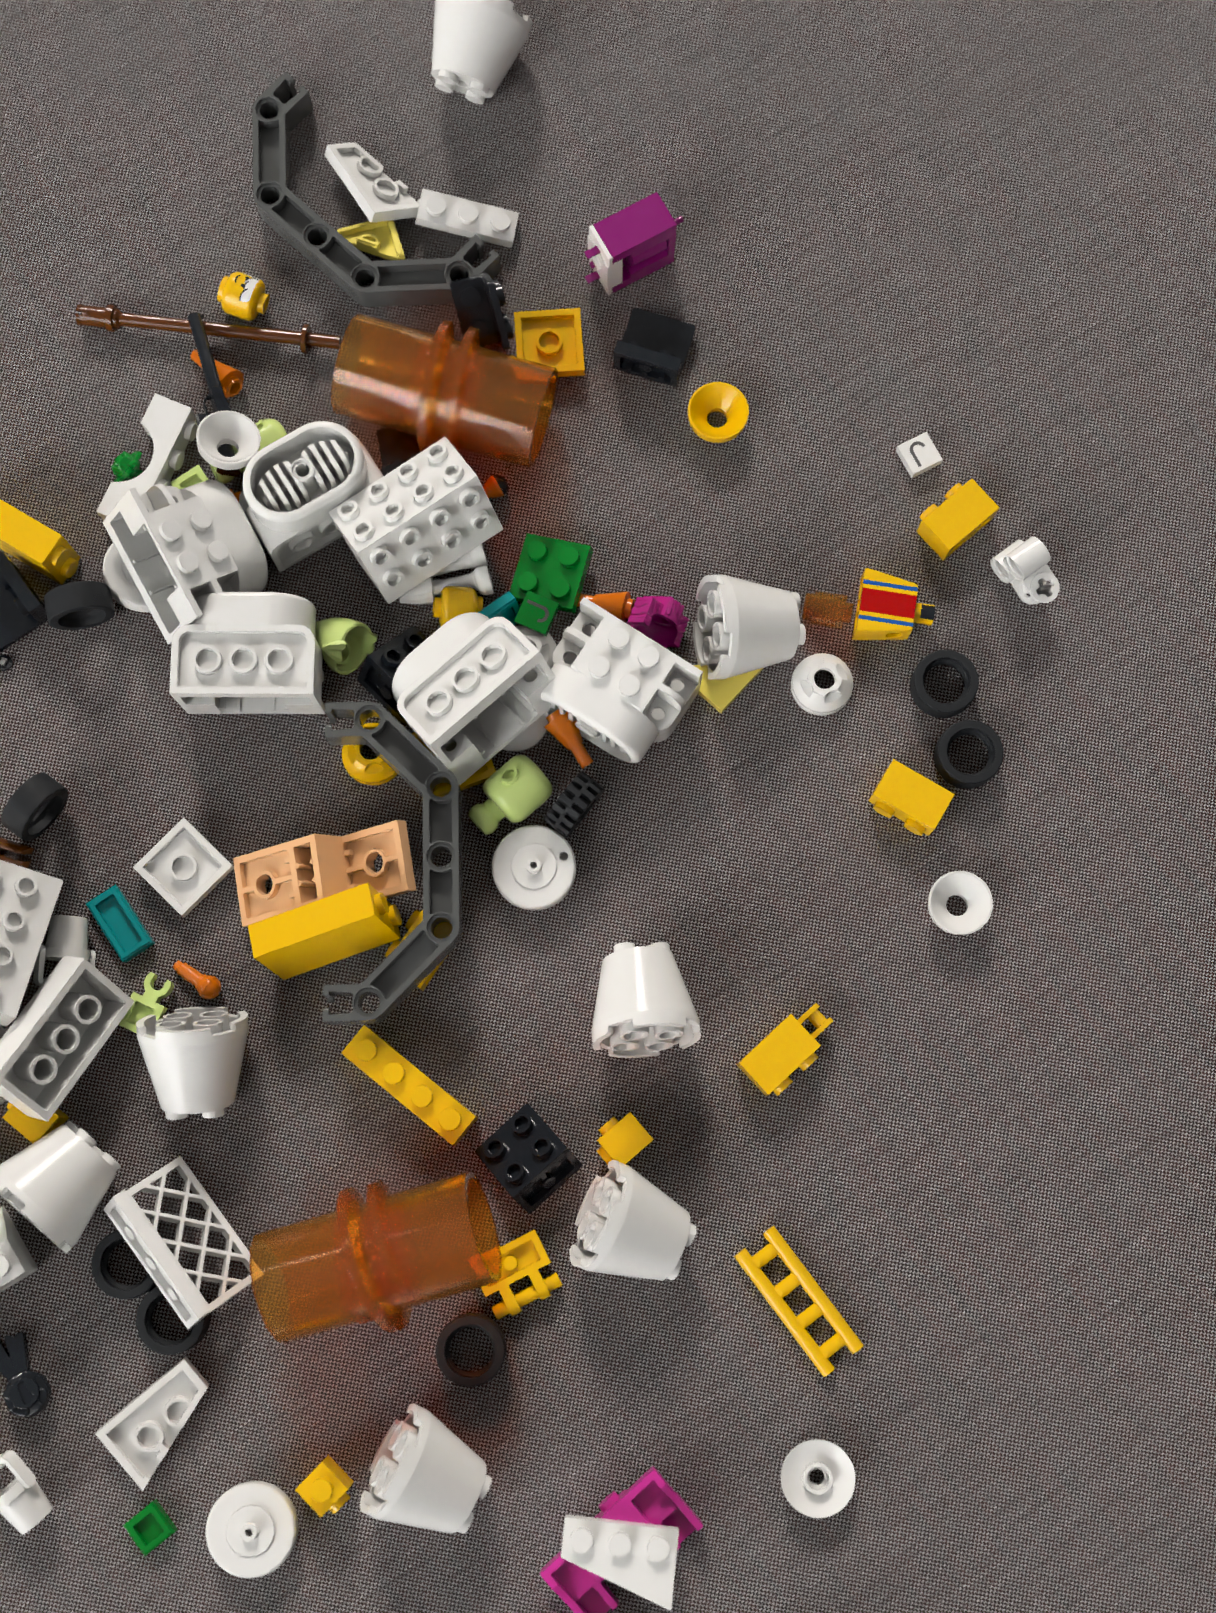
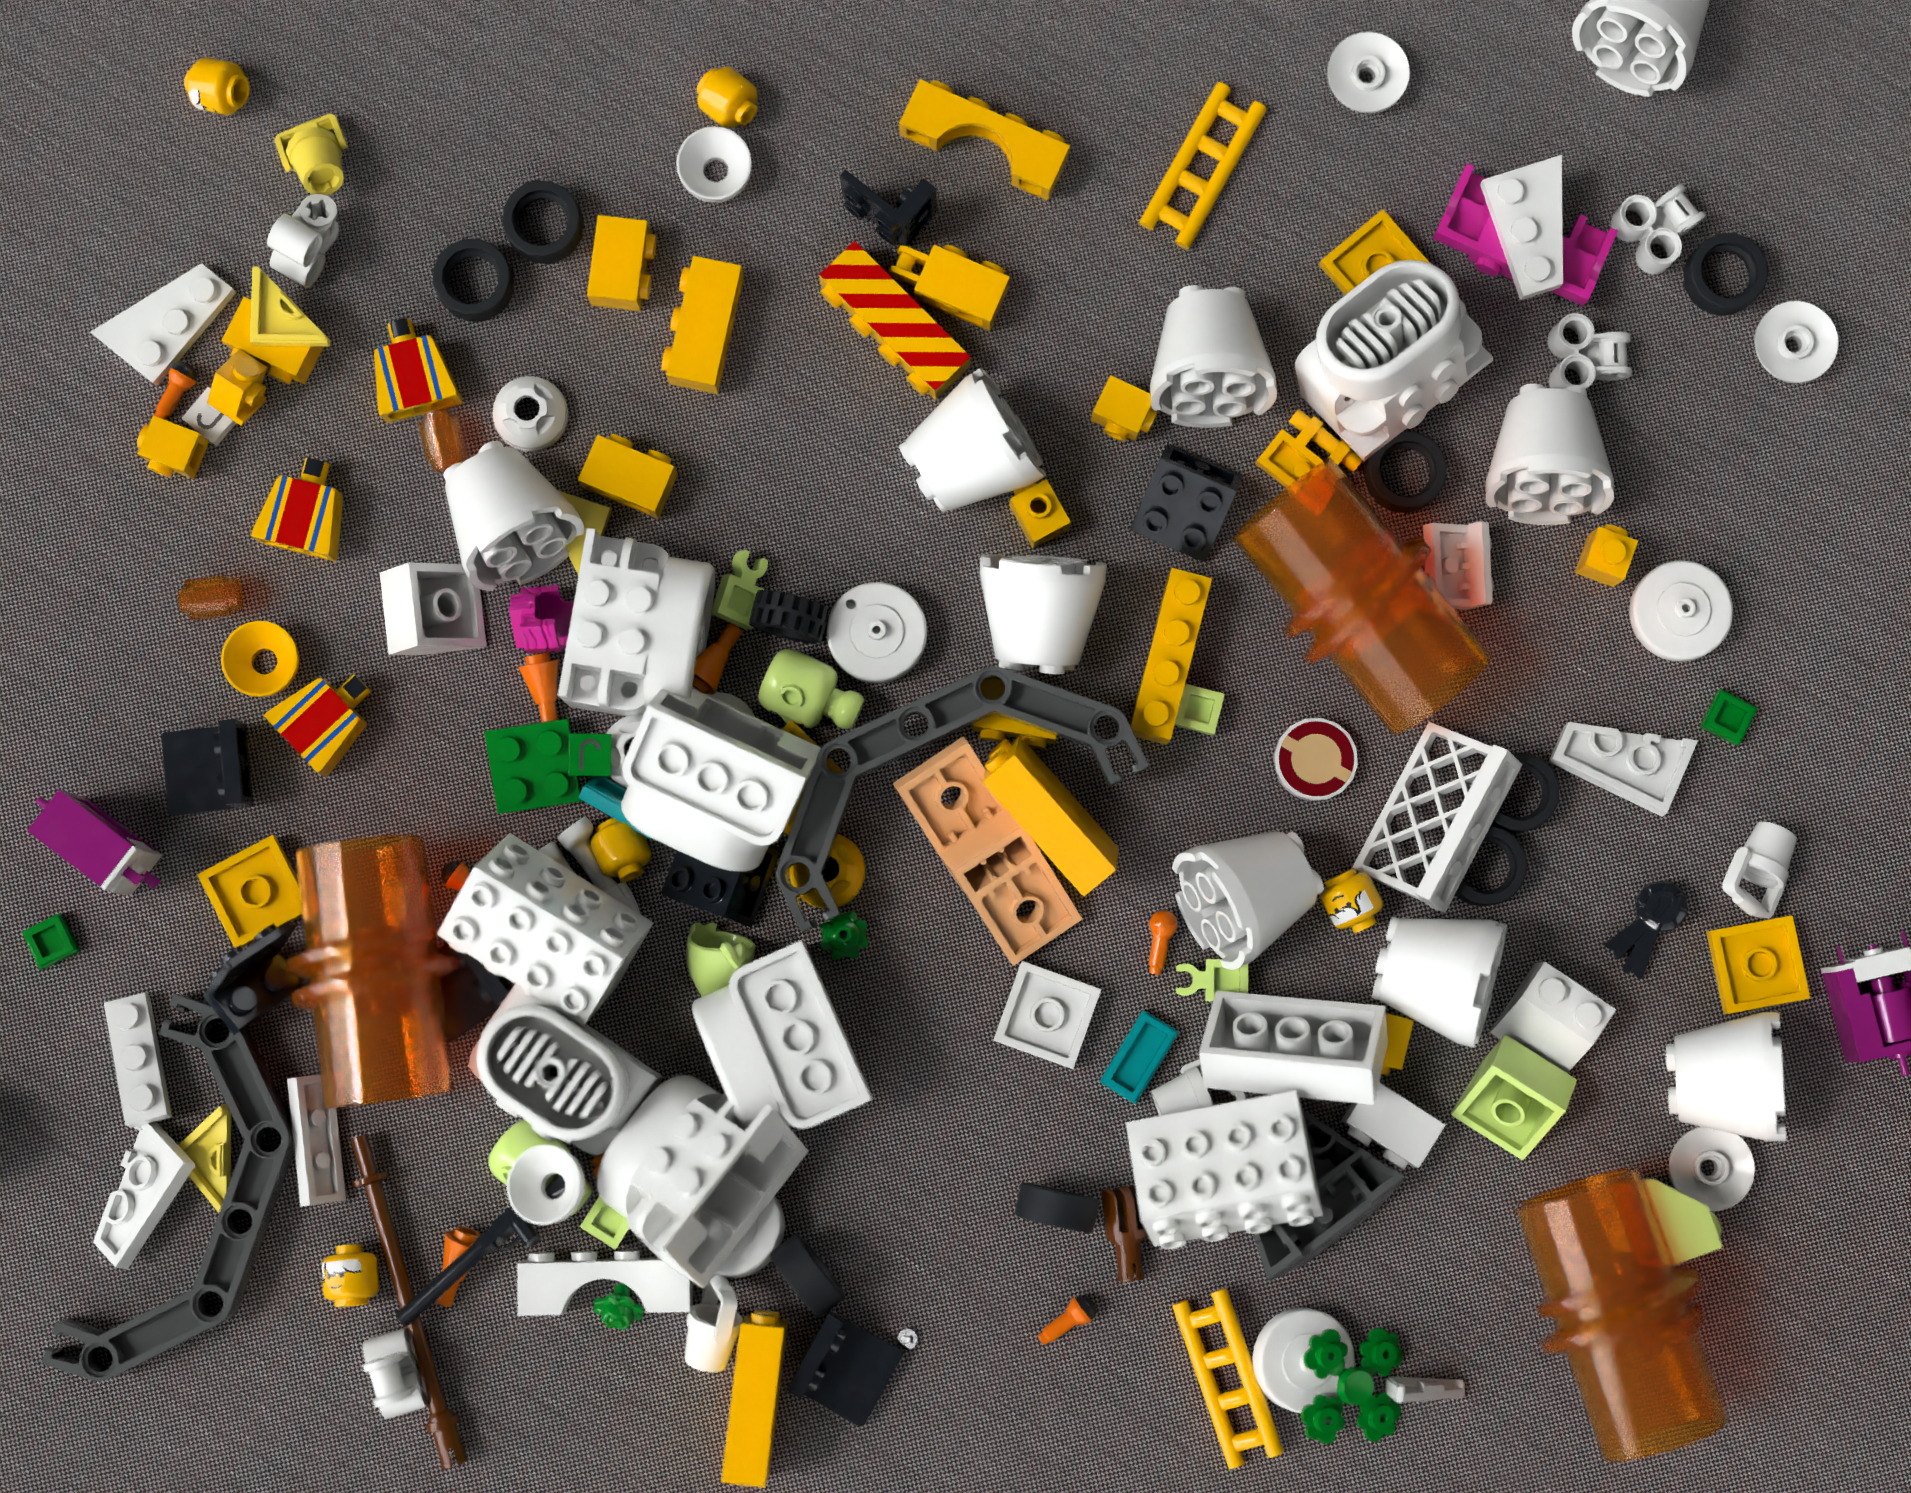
camera: 115 degrees left, 5 degrees up
(77, 524) = (713, 1327): none -> white piece
(152, 1141) = (1351, 900): none -> yellow head
(160, 295) = (394, 1374): none -> white piece
(278, 1166) = (1315, 759): none -> tile
(314, 744) = (844, 936): none -> green plant
(338, 308) = (315, 1143): none -> white plate
(358, 1091) = (1199, 709): none -> yellowish green plate
(375, 1357) = (1461, 562): none -> bracket
(492, 998) = (1040, 608): none -> white cone
(495, 1555) = (1594, 357): none -> white piece
(565, 1379) = (1390, 354): none -> white brick
(569, 1035) = (1039, 513): none -> yellow brick
(580, 197) = (51, 941): none -> green tile
(612, 776) = (738, 591): none -> yellowish green plate
(650, 1407) = (1368, 250): none -> yellow plate
(652, 437) = (321, 721): none -> torso
(699, 546) = (431, 609): none -> white slope
(740, 734) = (628, 475): none -> yellow brick
(775, 989) = (894, 321): none -> yellow brick
(780, 398) = (210, 597): none -> clear orange brick
(814, 486) = (302, 514): none -> torso
(834, 840) = (703, 324): none -> yellow brick
(856, 1041) = (915, 210): none -> black bracket
(905, 414) = (171, 448): none -> yellow brick
(926, 1099) = (939, 116): none -> yellow arch
(930, 477) = (238, 387): none -> yellow brick
(956, 444) = (181, 378): none -> orange piece
(972, 523) = (278, 319): none -> light yellow tile
(1005, 451) = (166, 323): none -> white wing
(1011, 938) = (727, 97): none -> yellow head
(1092, 606) = (314, 153): none -> light yellow piece
(1176, 557) = (217, 86): none -> yellow head

